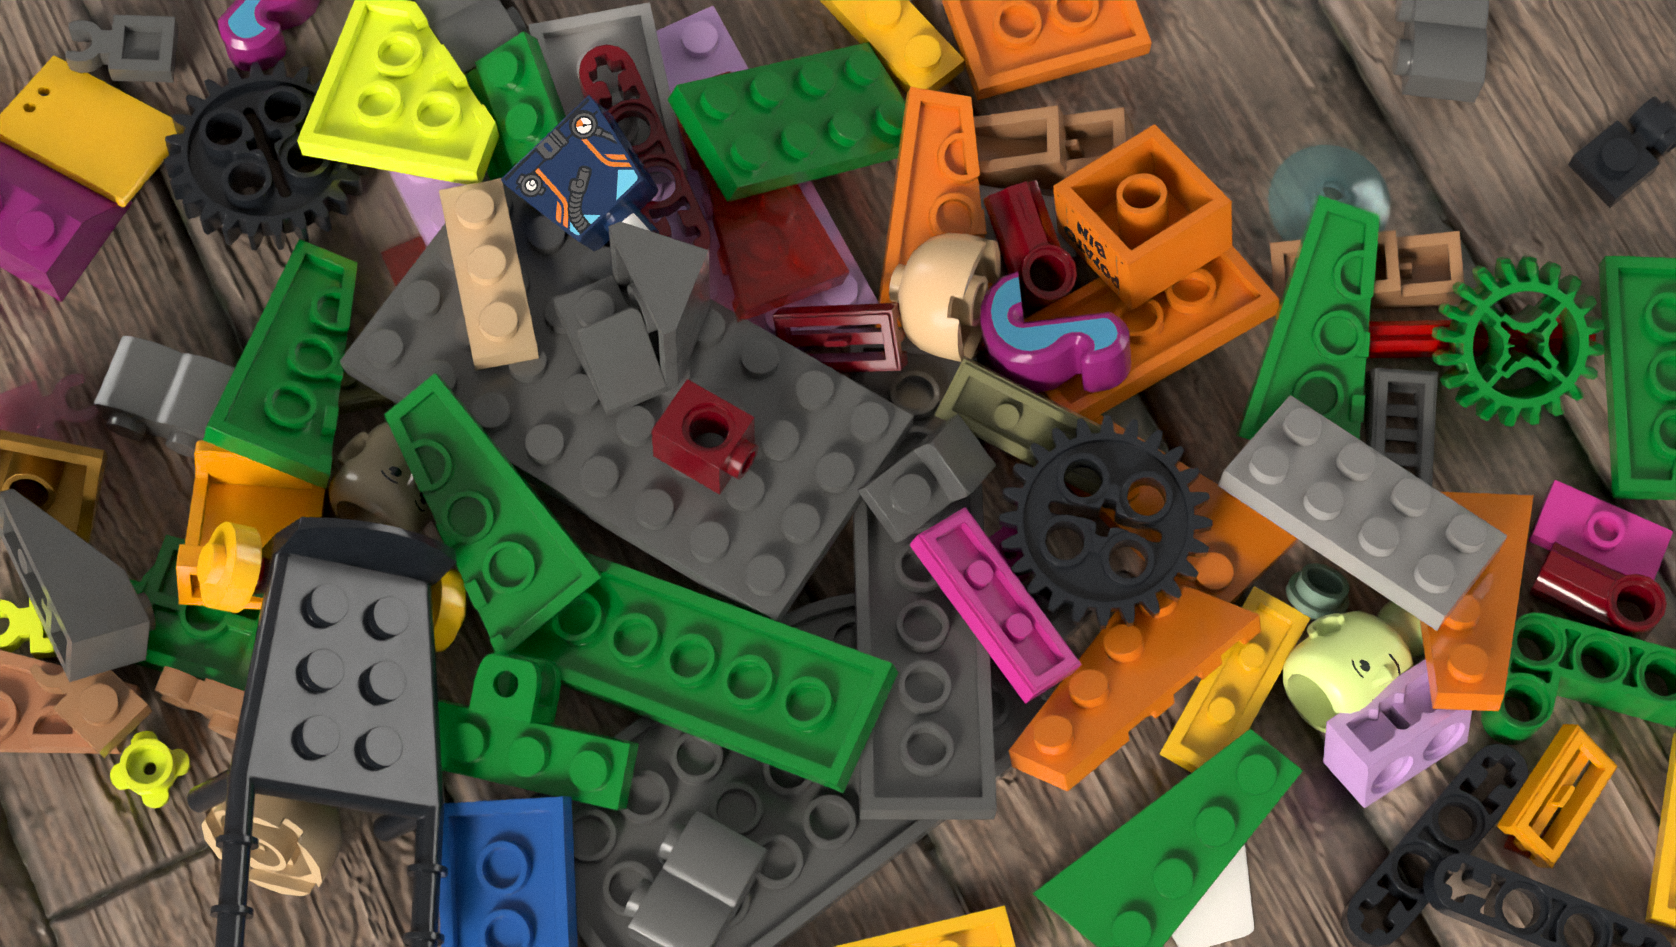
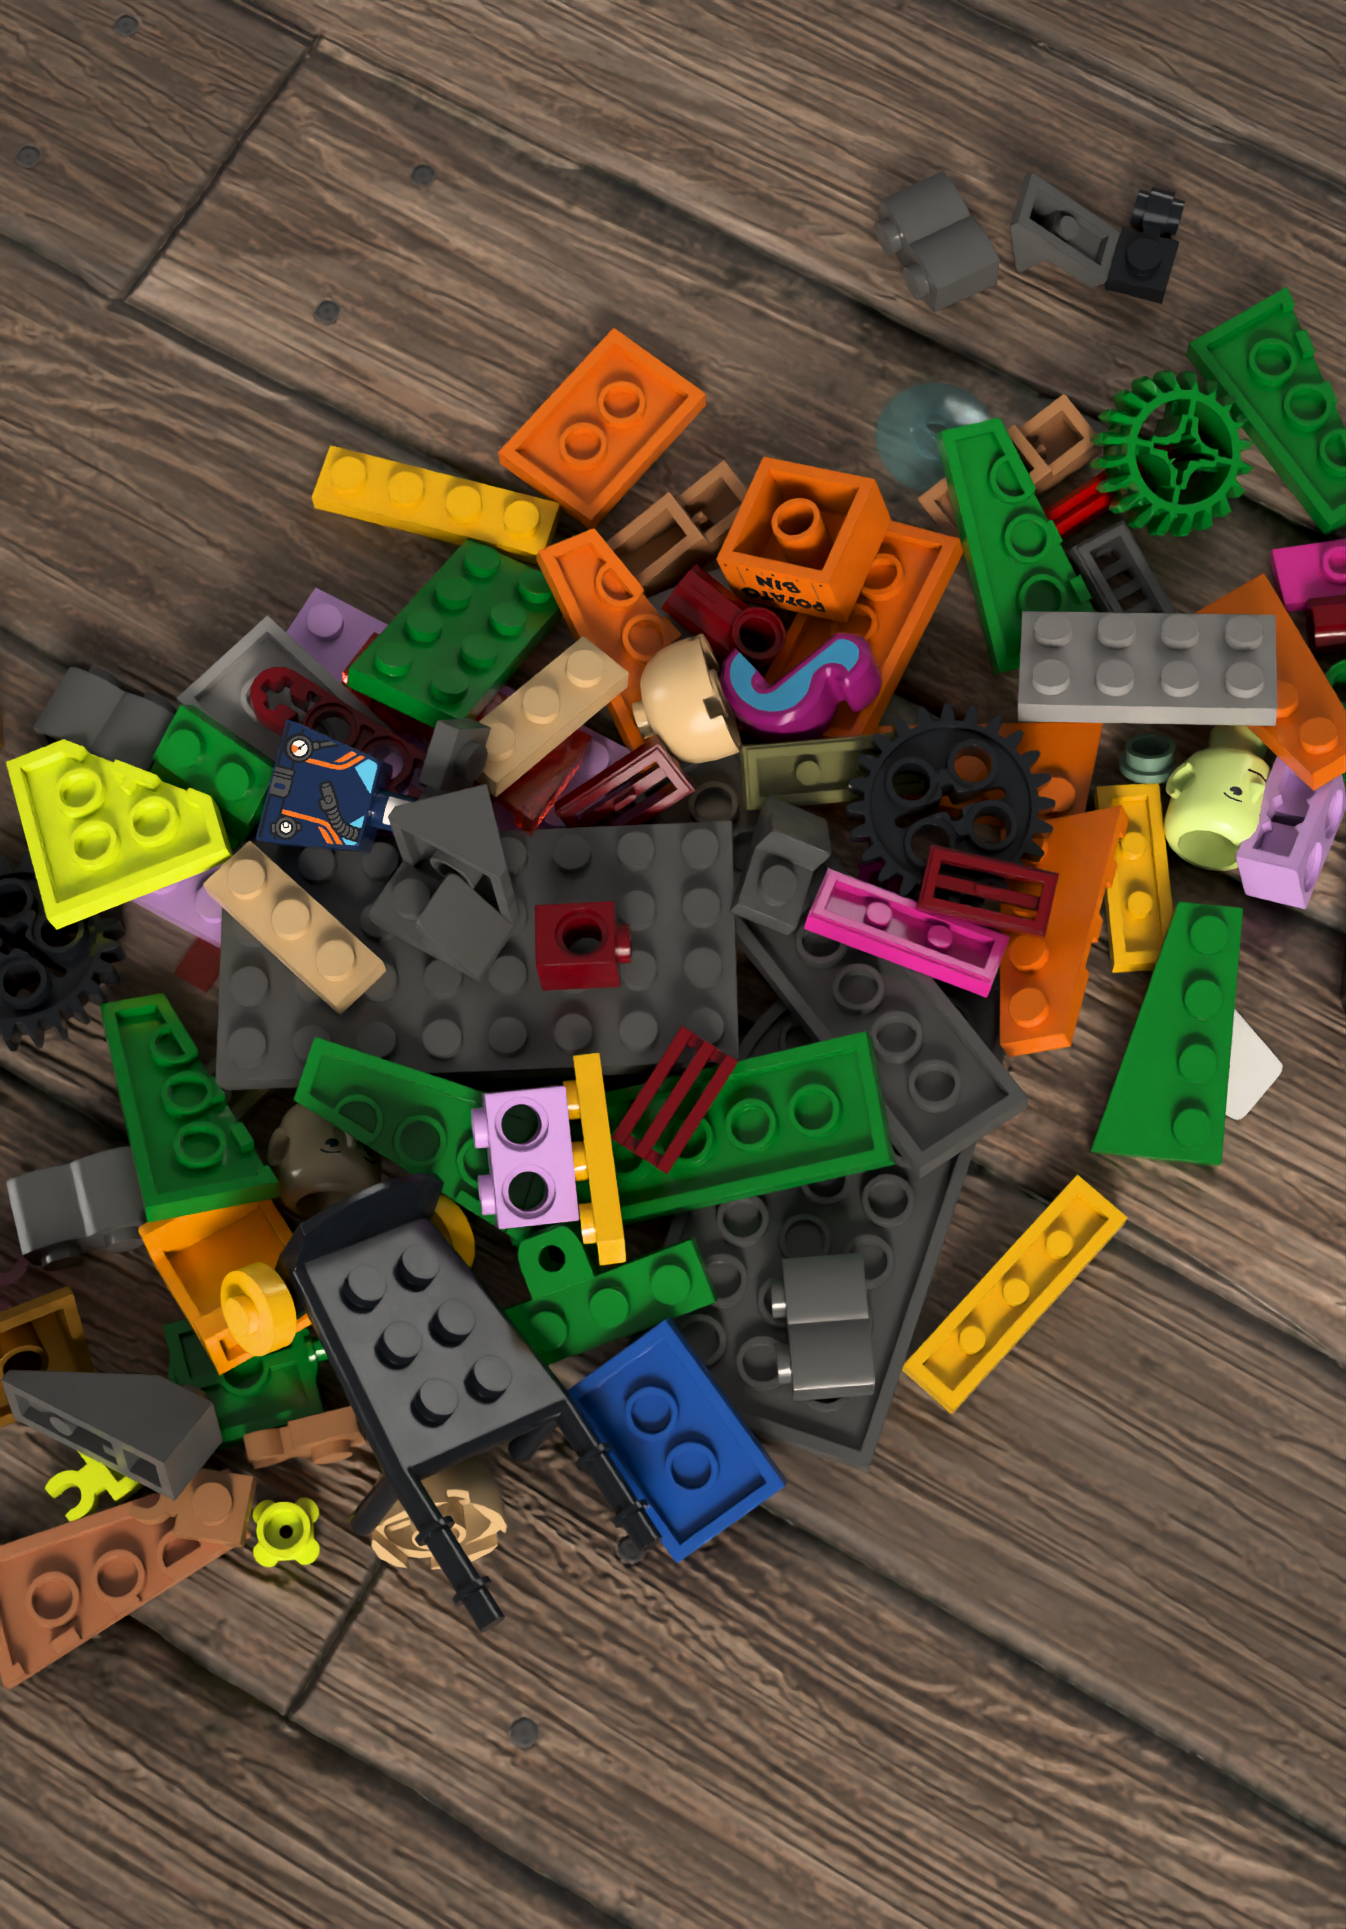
camera: 25 degrees left, 0 degrees up
(557, 594) = (545, 1153): none -> lavender brick
(597, 625) = (594, 1160): none -> yellow plate
(646, 641) = (645, 1147): none -> dark red tile
(707, 212) = (454, 756): none -> dark grey plate
(812, 225) = (548, 711): none -> tan plate
(1044, 573) = (932, 880): none -> dark red tile
(1557, 90) = (1061, 231): none -> dark grey slope

